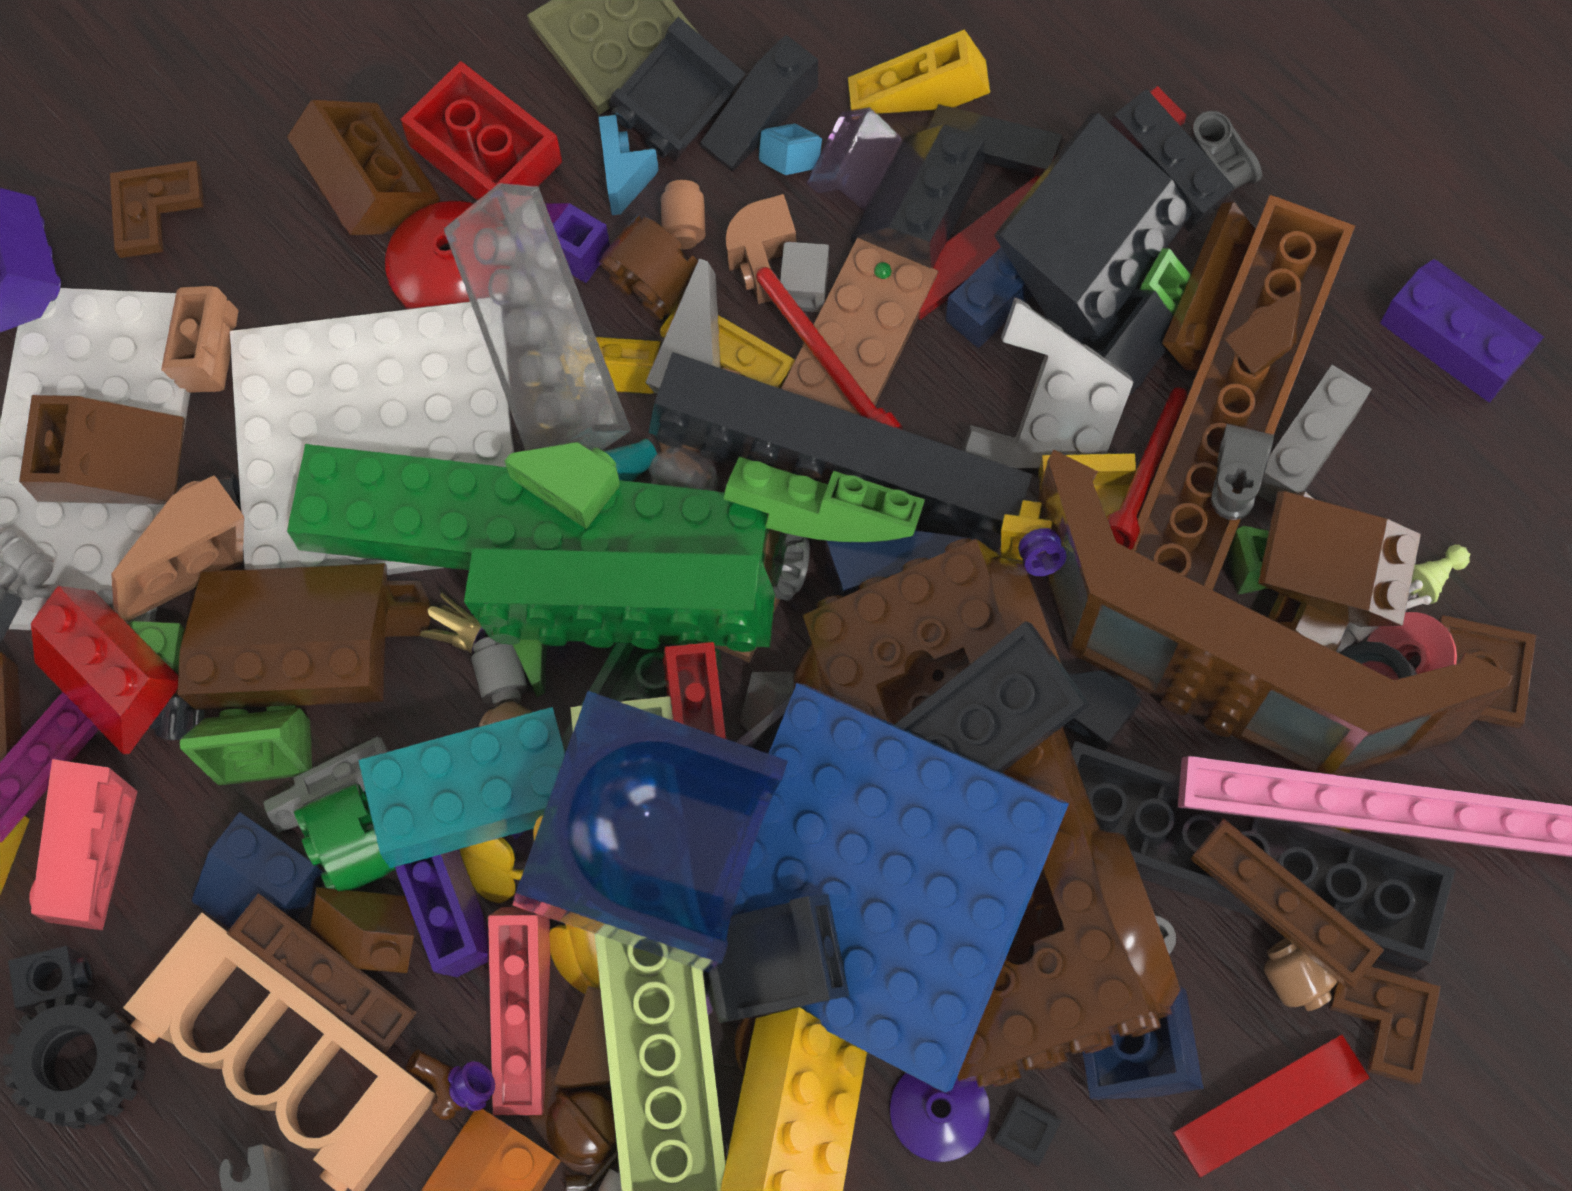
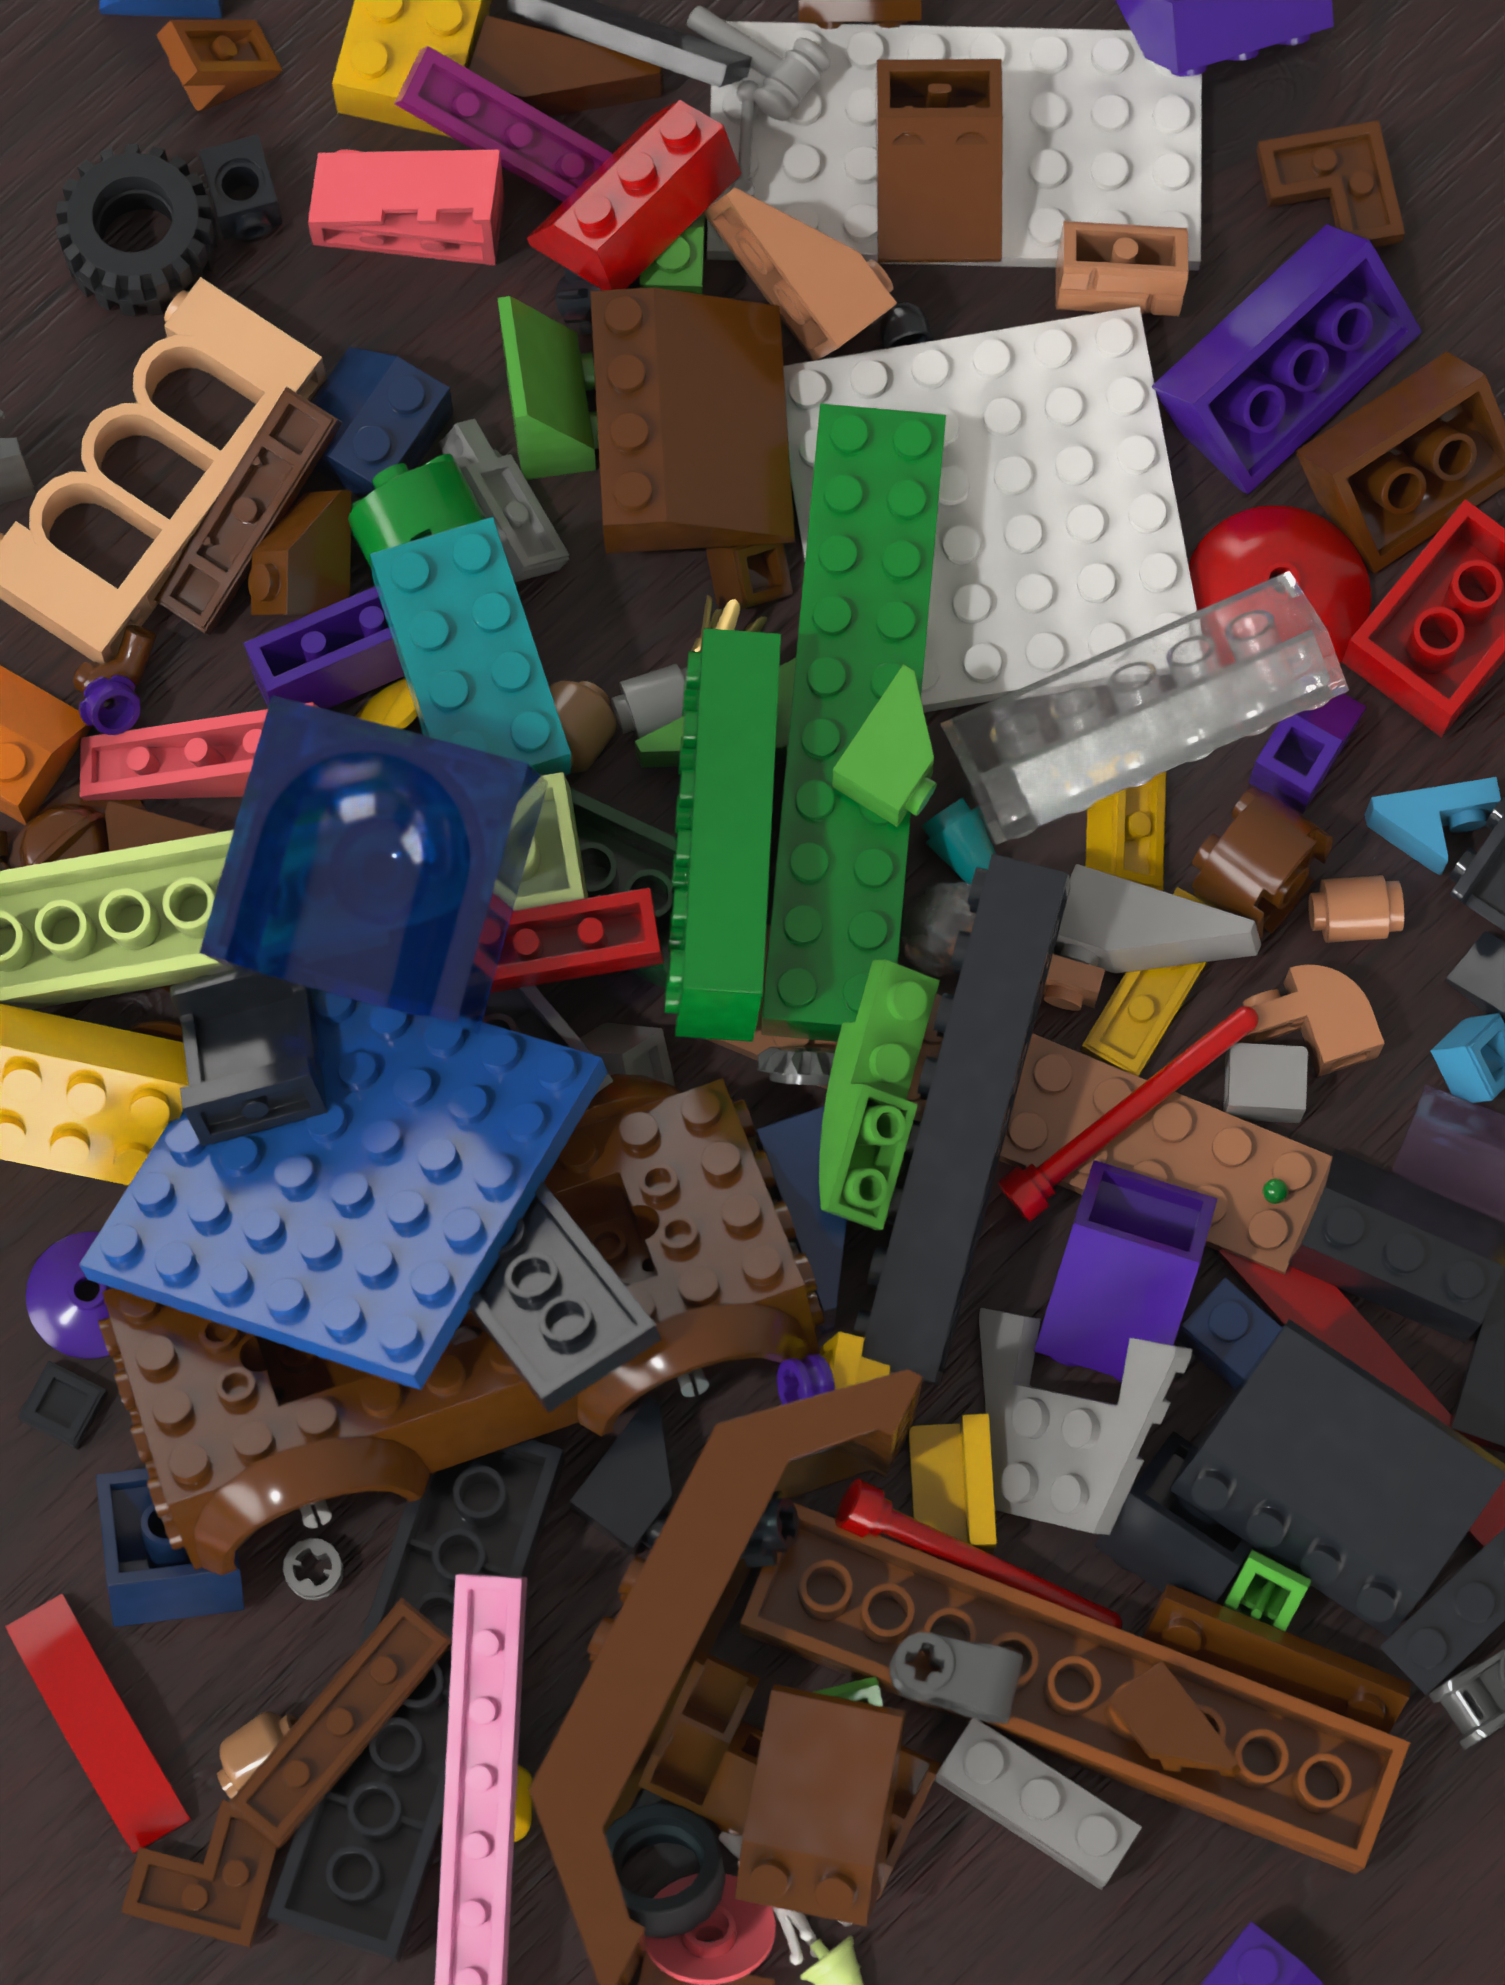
camera: 85 degrees right, 5 degrees up
(276, 240) = (1288, 357): none -> dark purple slope
(942, 362) = (1124, 1269): none -> dark purple slope

